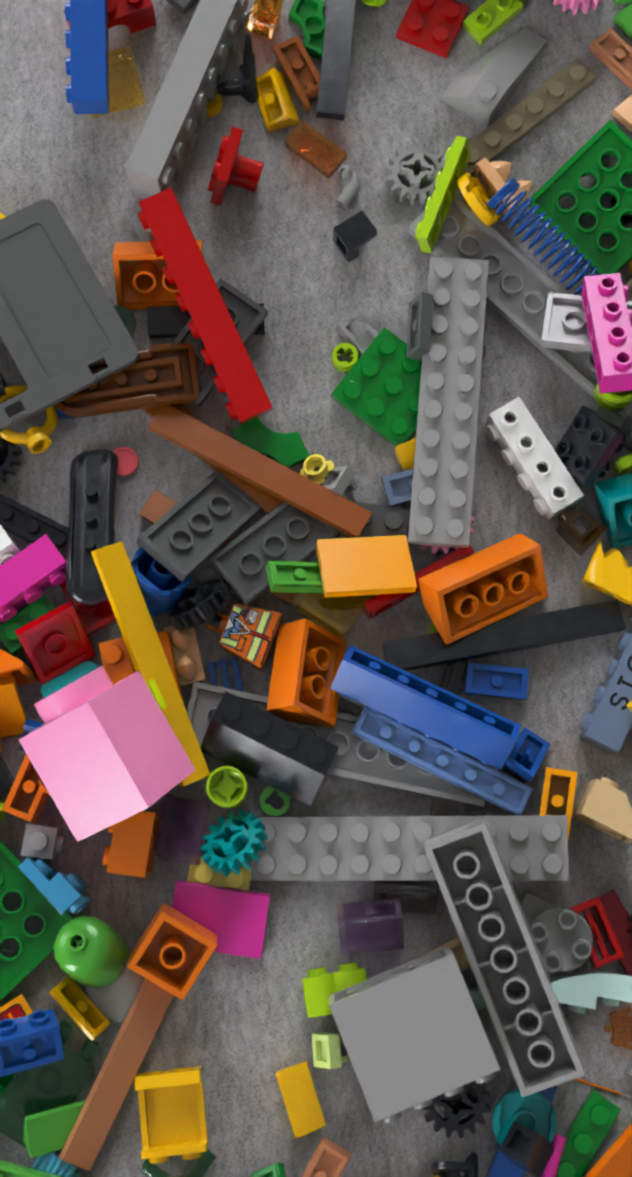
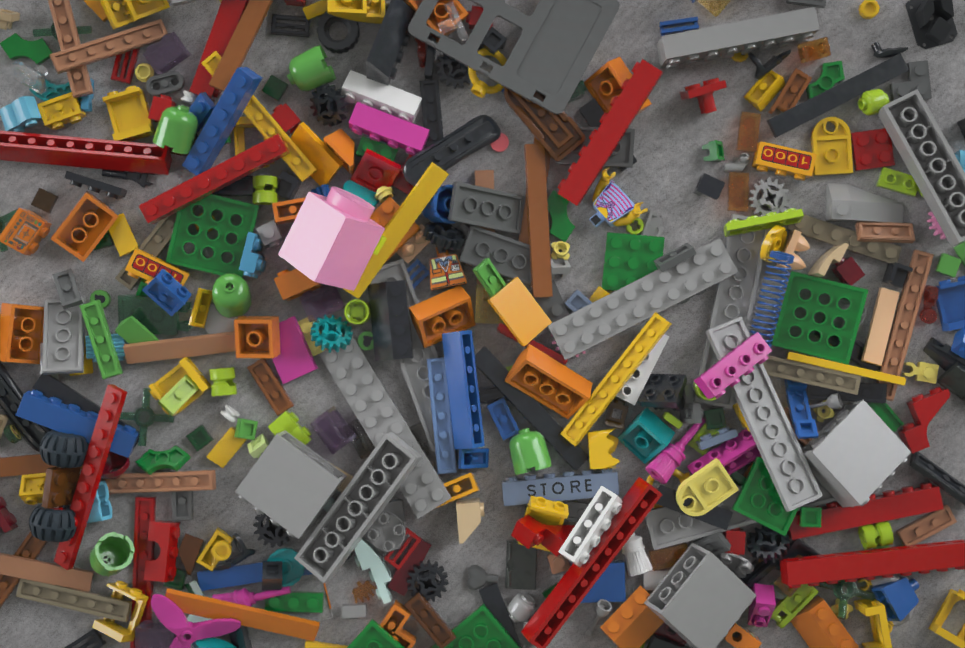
camera: 60 degrees right, 10 degrees up
(90, 650) = (383, 193): none -> light yellow plate
(119, 153) = (694, 20): none -> blue tile
(182, 1121) = (178, 395): none -> lime plate
(203, 1043) = (223, 381): none -> lime wheel
(253, 979) = (270, 386): none -> dark orange tile
(255, 1062) = (230, 413): none -> white bush
(262, 1131) = (199, 438): none -> dark green tile
(291, 1053) = (246, 429): none -> bright green tile
(300, 364) = (613, 204): none -> torso
(315, 201) = (716, 151): none -> green tile
(380, 128) = (784, 161): none -> light orange brick
(383, 205) = (738, 192): none -> clear orange plate
(401, 68) = (832, 148): none -> yellow tile
(534, 498) = (615, 379): none -> yellow tile
(539, 148) = (832, 256): none -> tan slope
(546, 65) = (885, 232): none -> nougat tile
(563, 672) = (528, 451): none -> bright green cylinder
(568, 135) = (848, 271): none -> dark red brick
(607, 83) = (896, 274): none -> black panel

